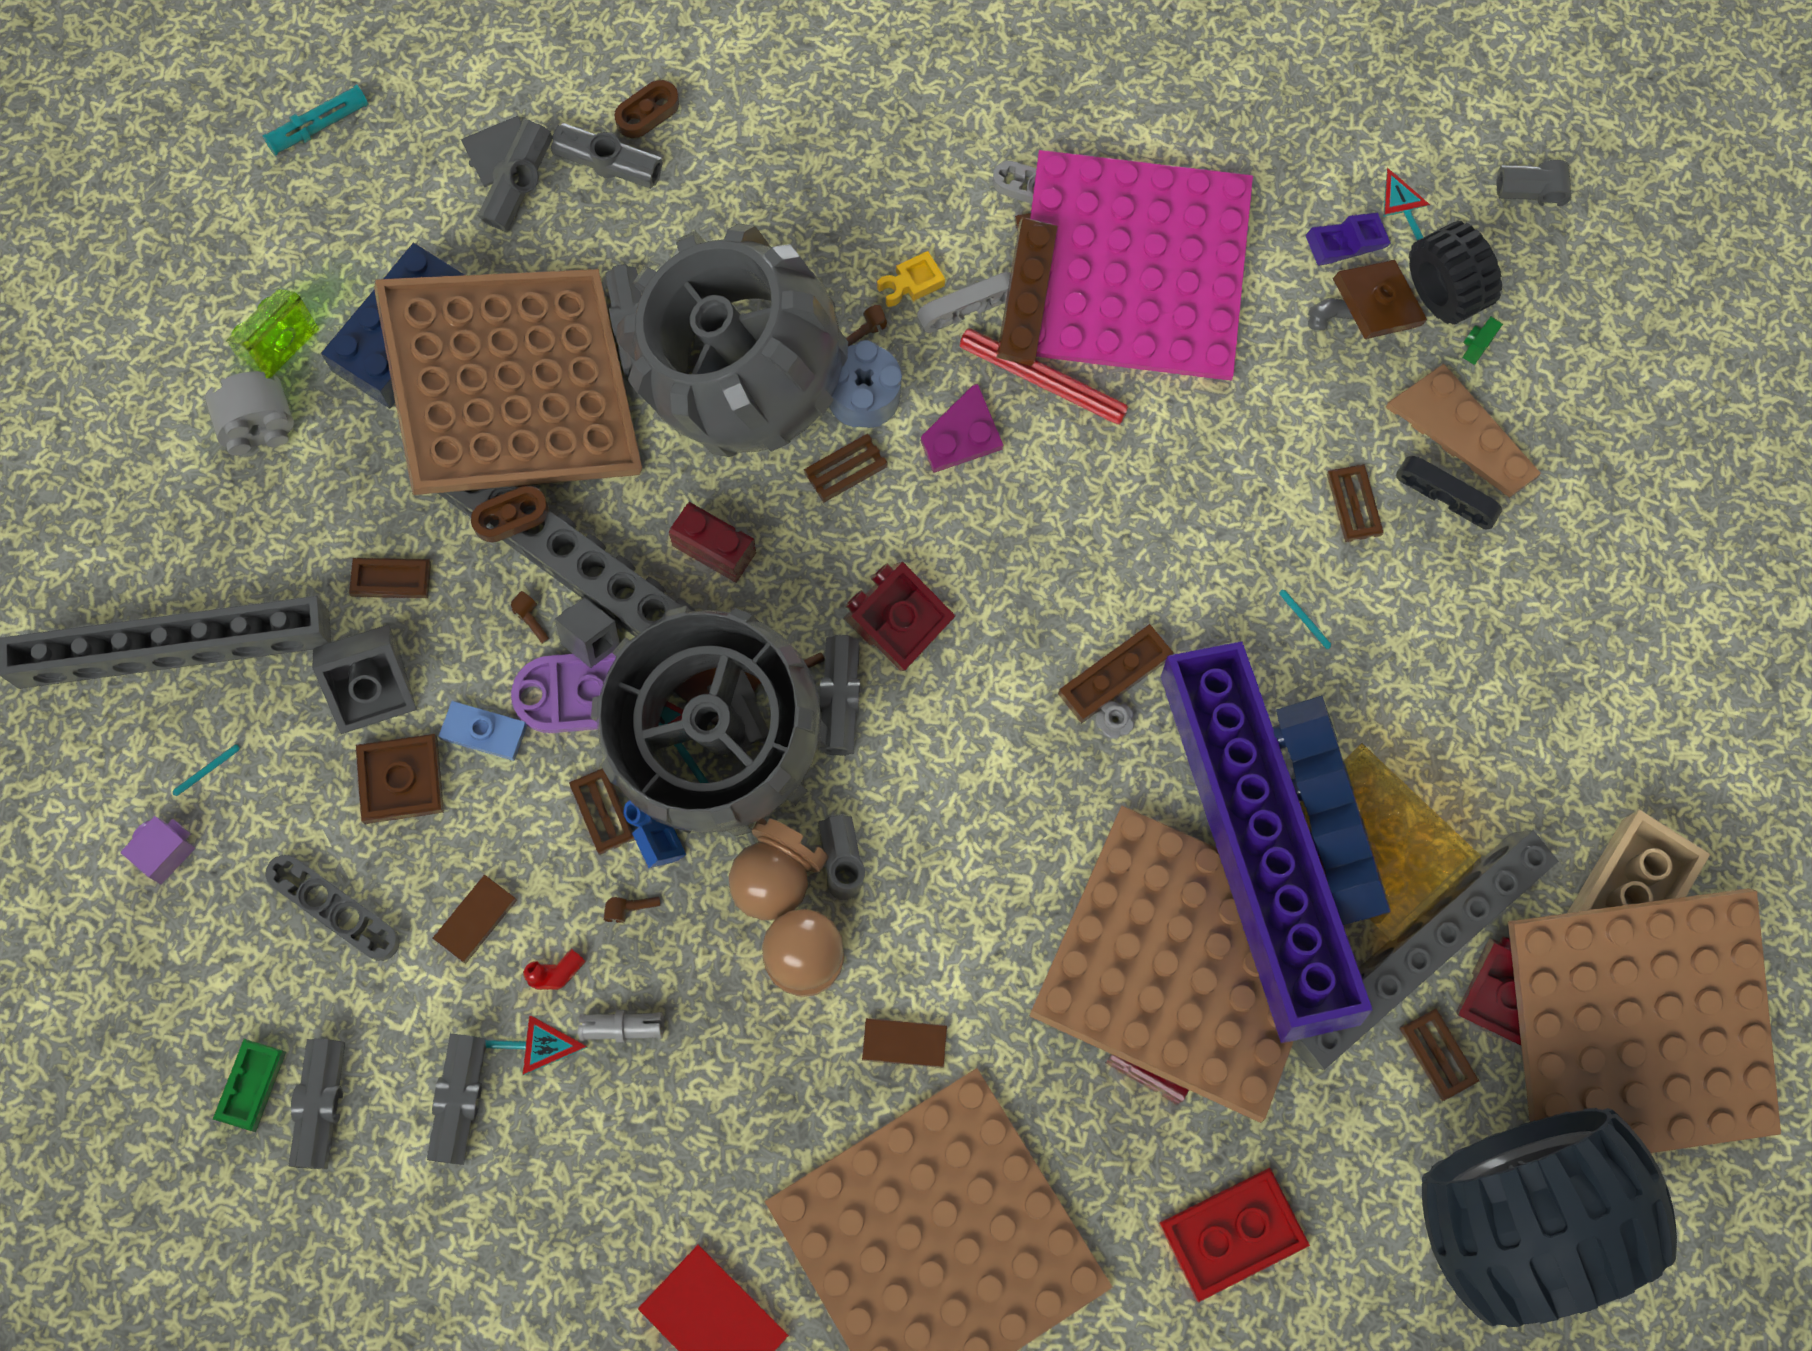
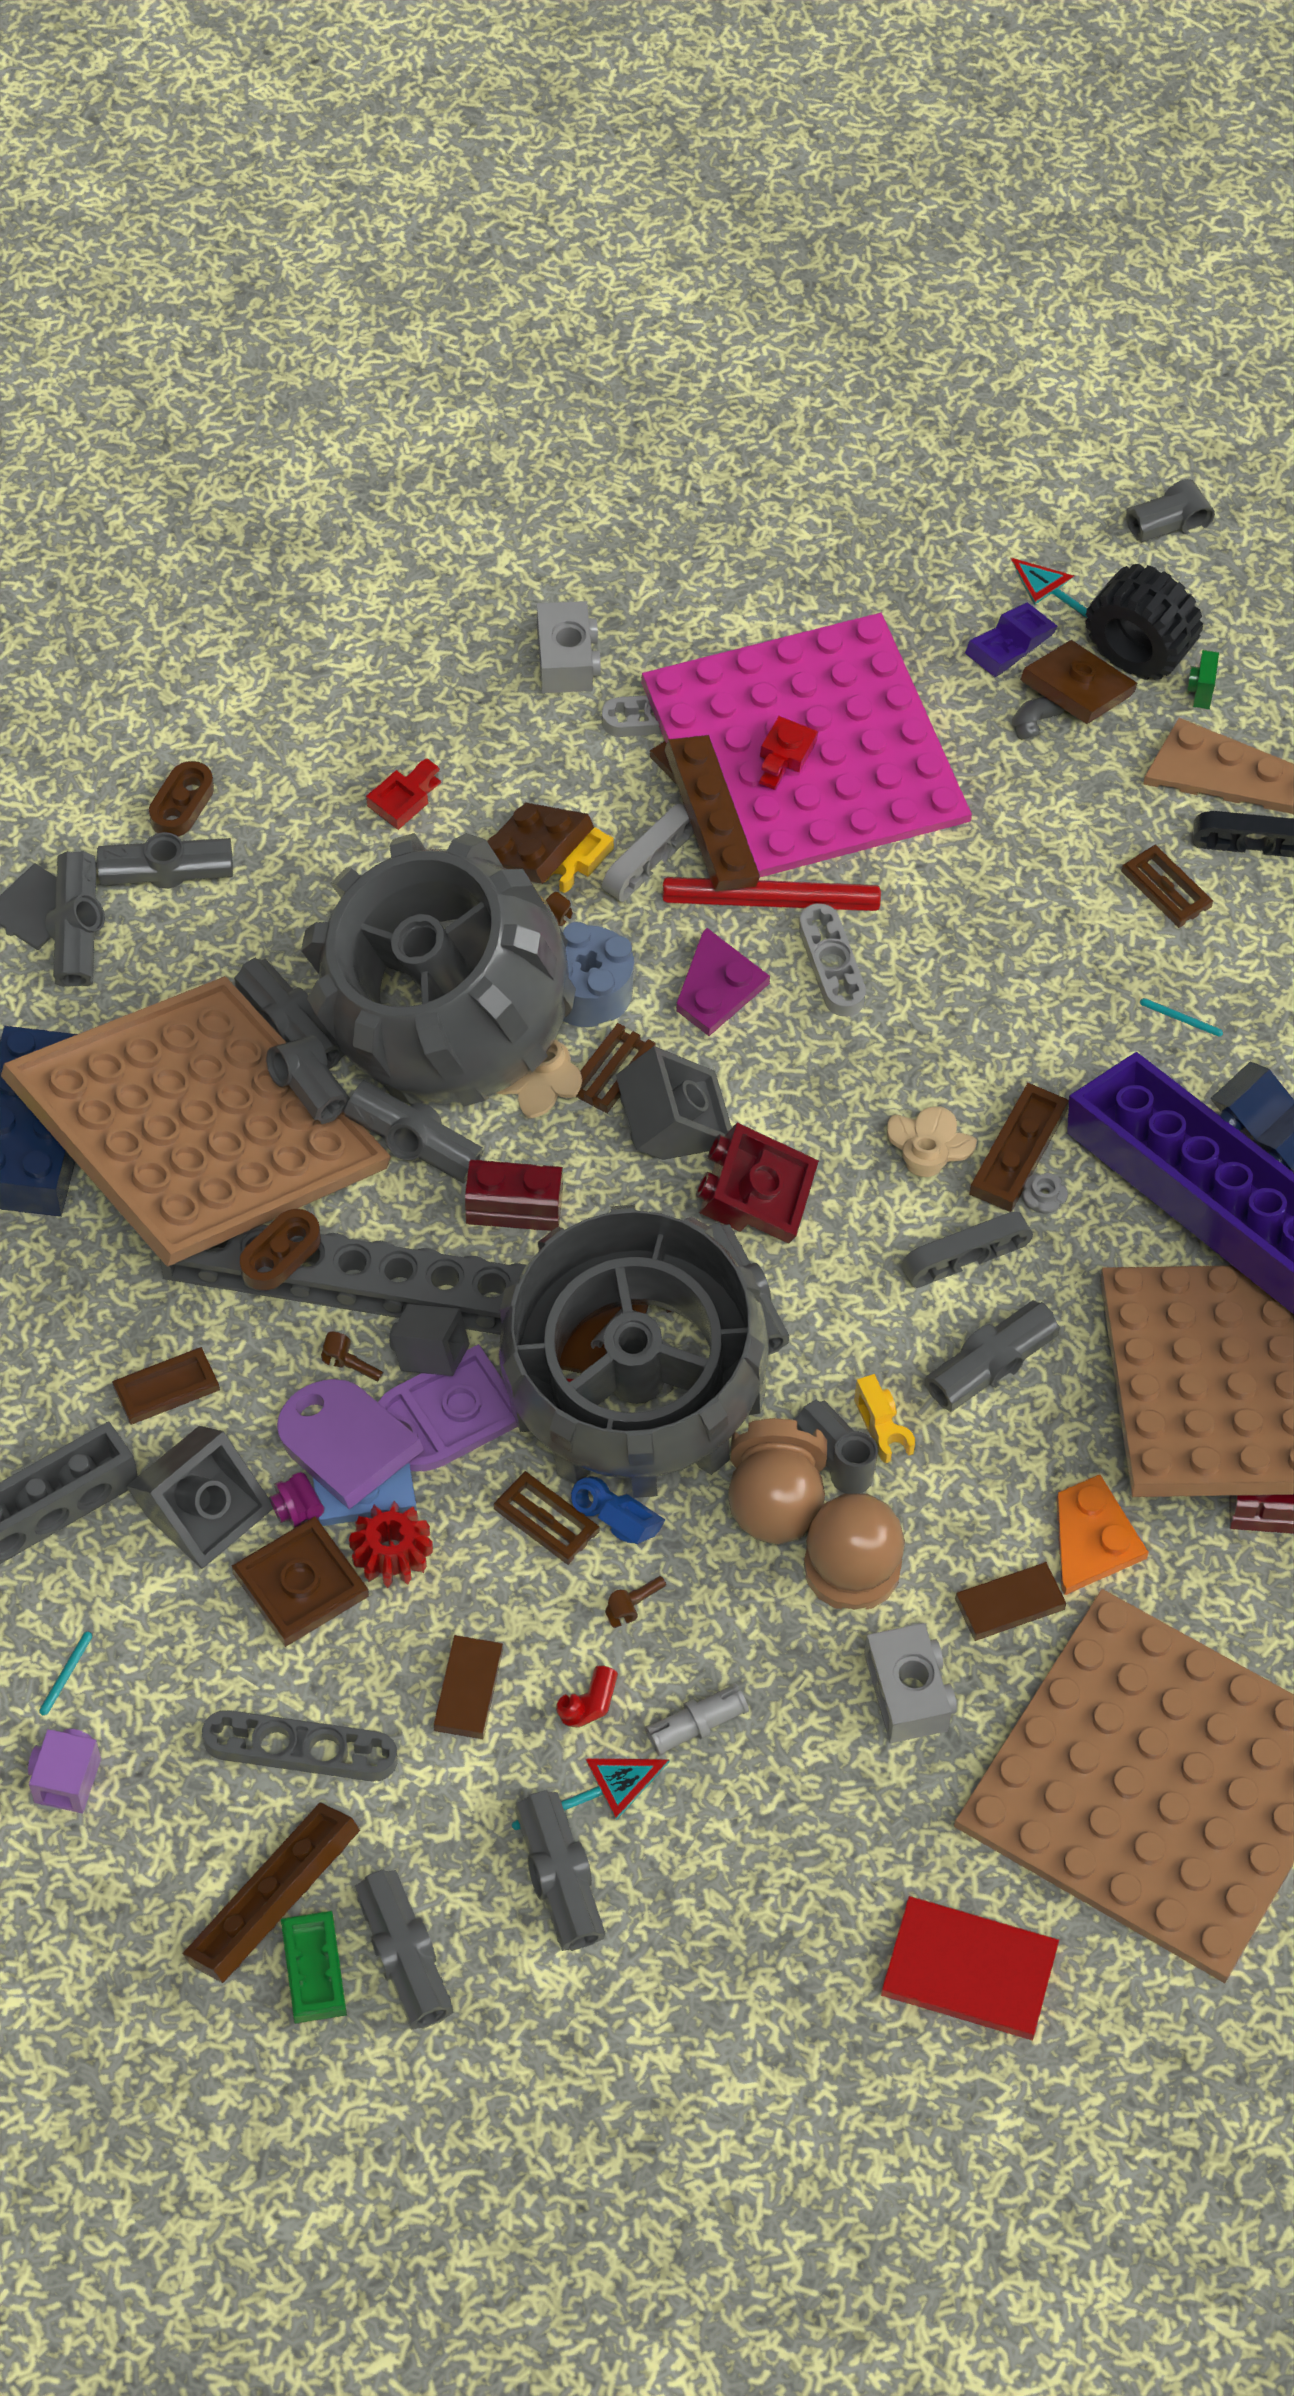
camera: 25 degrees left, 15 degrees down
(249, 1014) = (271, 1892): none -> reddish brown plate
(428, 713) = (296, 1500): none -> magenta plate
(486, 687) = (349, 1442): none -> medium lavender tile
(491, 779) = (392, 1559): none -> red gear
(607, 372) = (304, 1068): none -> dark grey piece
(665, 456) = (412, 1131): none -> dark grey piece
(785, 1050) = (907, 1710): none -> light grey brick
(791, 459) = (551, 1079): none -> tan plate
(808, 176) = (403, 797): none -> red plate
(871, 521) = (672, 1105): none -> dark grey slope
(883, 257) = (539, 839): none -> reddish brown plate
(887, 841) = (877, 1411): none -> yellow plate
(997, 1019) = (1094, 1535): none -> orange wing
(999, 836) = (992, 1355): none -> dark grey piece
(1000, 85) = (565, 647): none -> light grey brick
(1038, 739) = (972, 1244): none -> dark grey beam
(1055, 630) = (929, 1140): none -> tan plate
(1064, 477) = (838, 944): none -> light grey beam
(1112, 261) = (785, 747): none -> red plate

